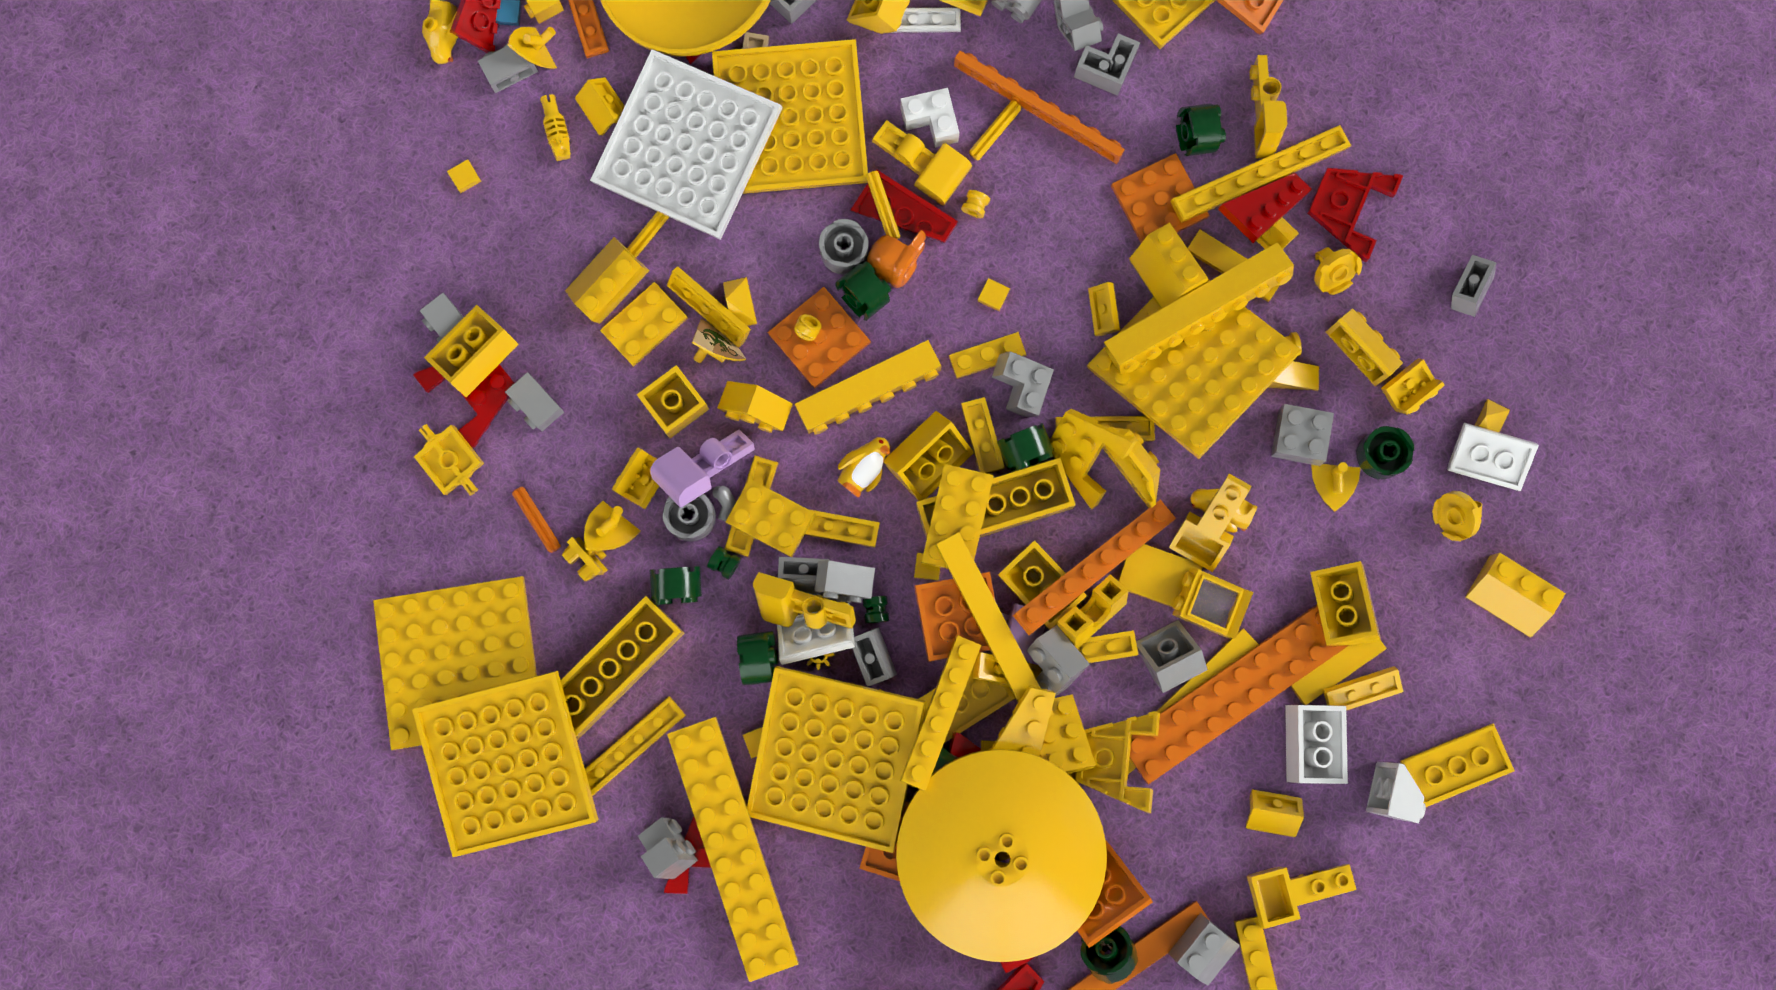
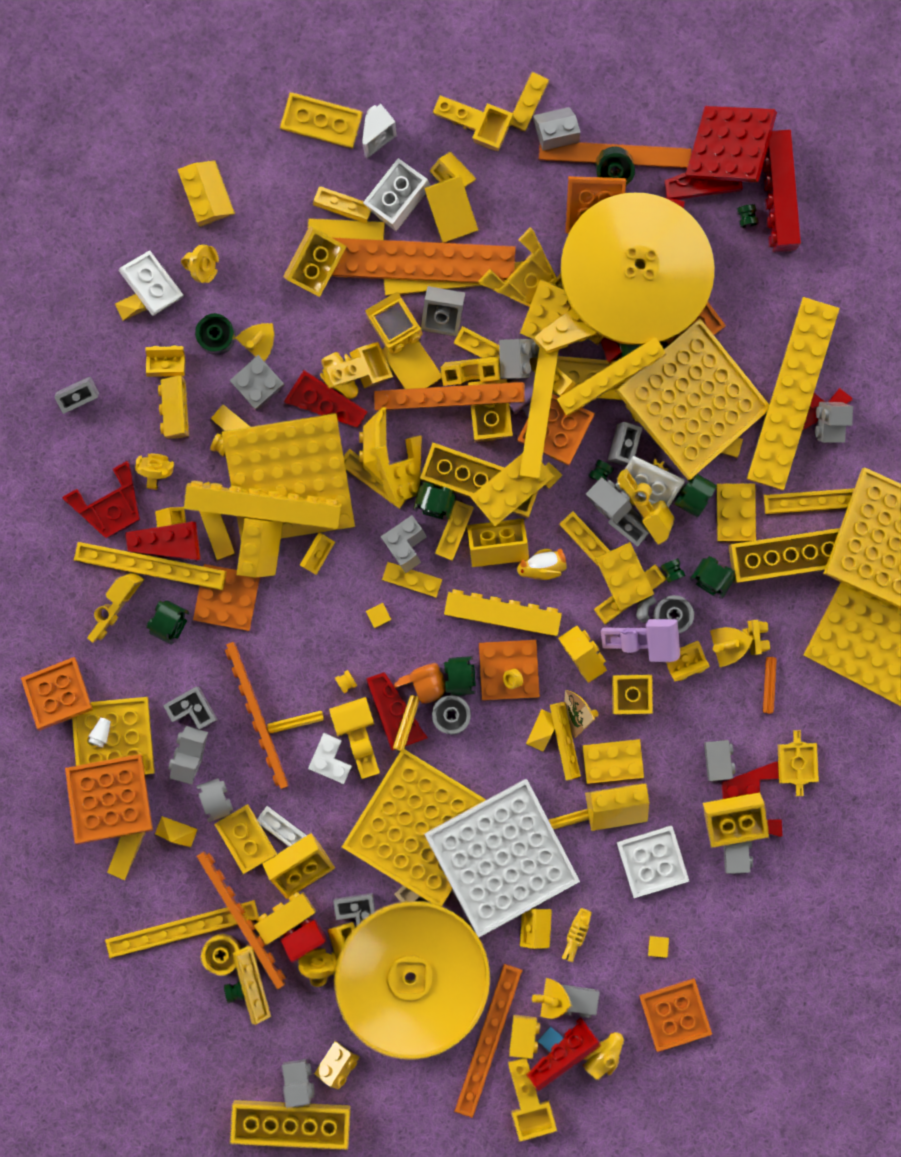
camera: 140 degrees left, 5 degrees up
(398, 122) = (675, 1014): none -> orange plate
(530, 253) = (652, 861): none -> white plate
(702, 674) = (736, 512): none -> yellow plate
(1211, 470) = (317, 397): none -> red wing
(1248, 772) = (451, 209): none -> yellow tile

